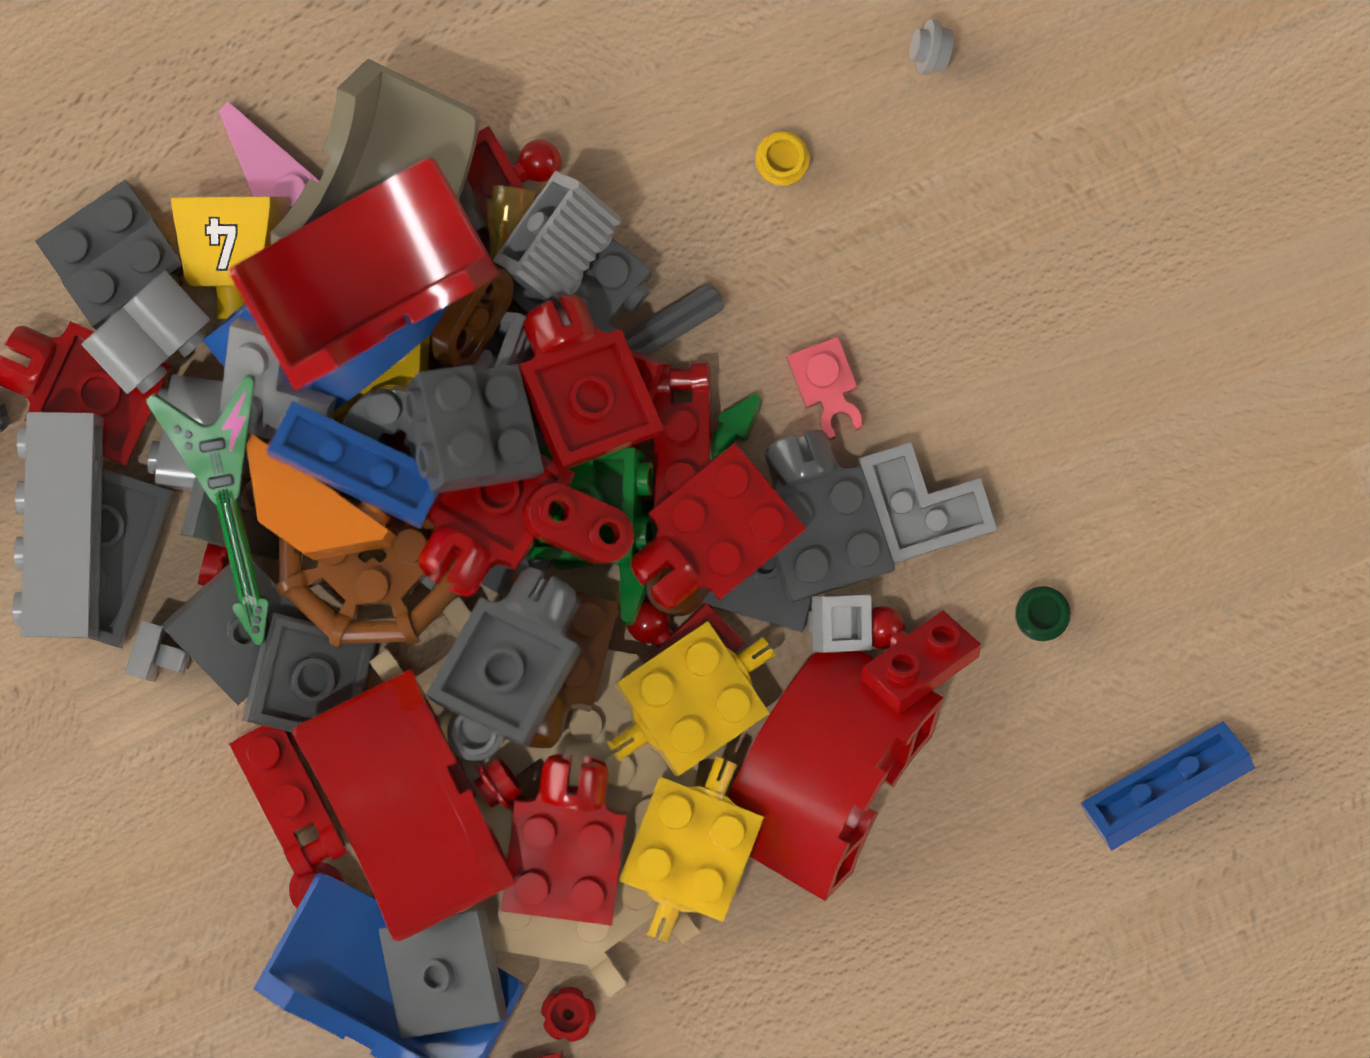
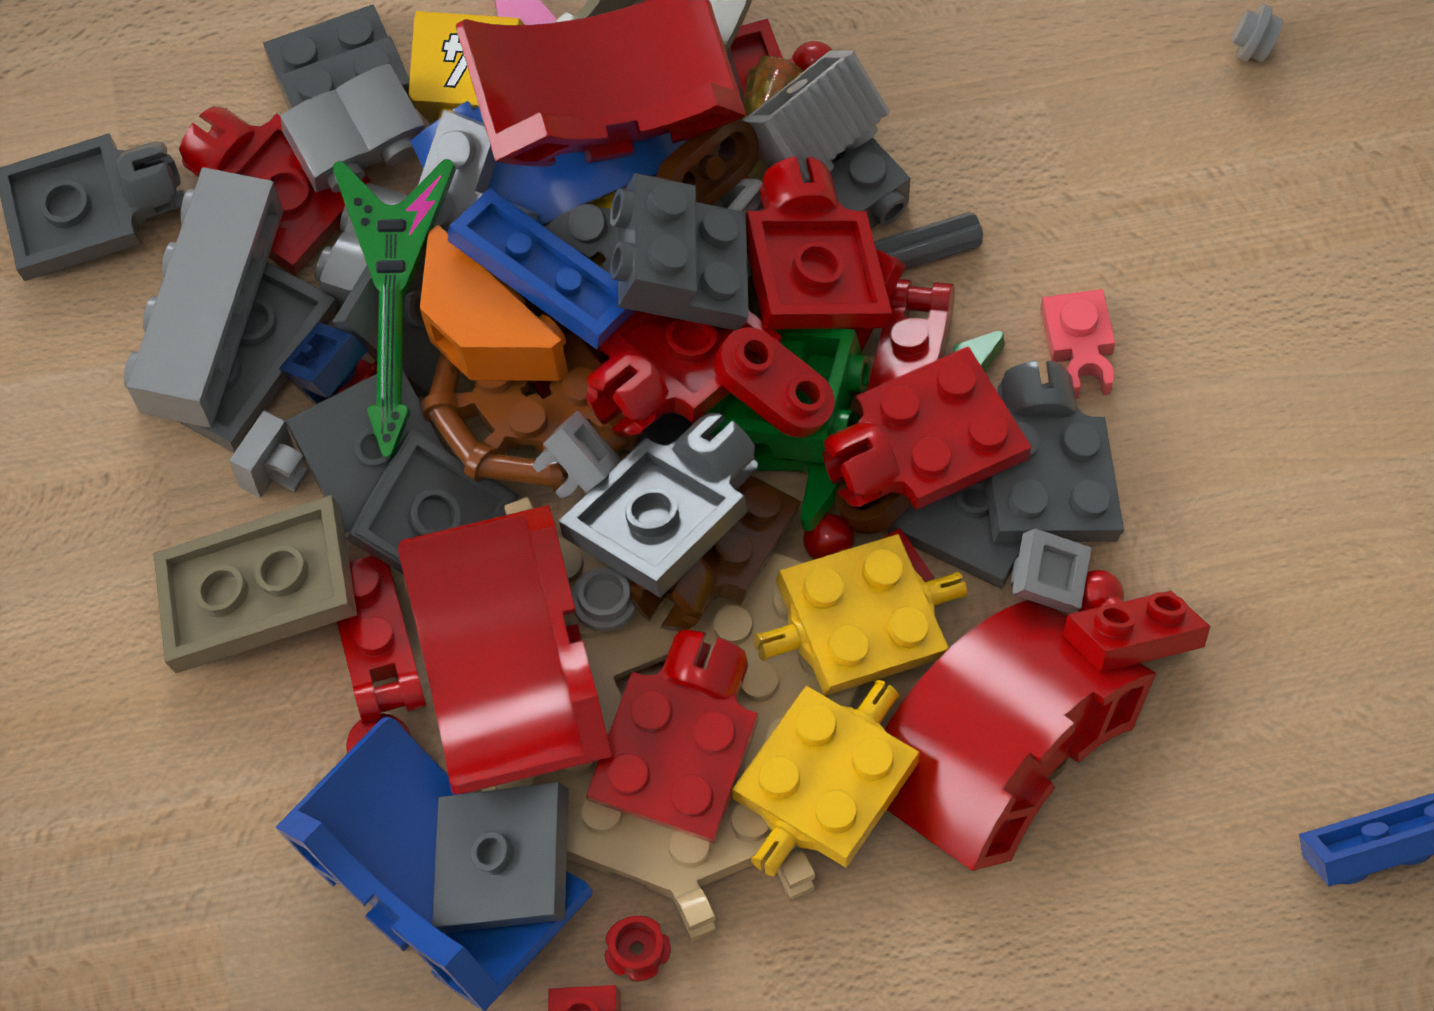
camera: 15 degrees right, 20 degrees down
(176, 776) = (254, 584): none -> dark tan plate
(179, 562) = (323, 362): none -> dark blue bracket
(427, 623) = (580, 453): none -> light grey tile
(497, 784) = (616, 656): red plate -> none
(782, 158) = (1075, 110): yellow plate -> none
(921, 521) = (1164, 492): light grey plate -> none
(1042, 613) = (1286, 618): dark green plate -> none

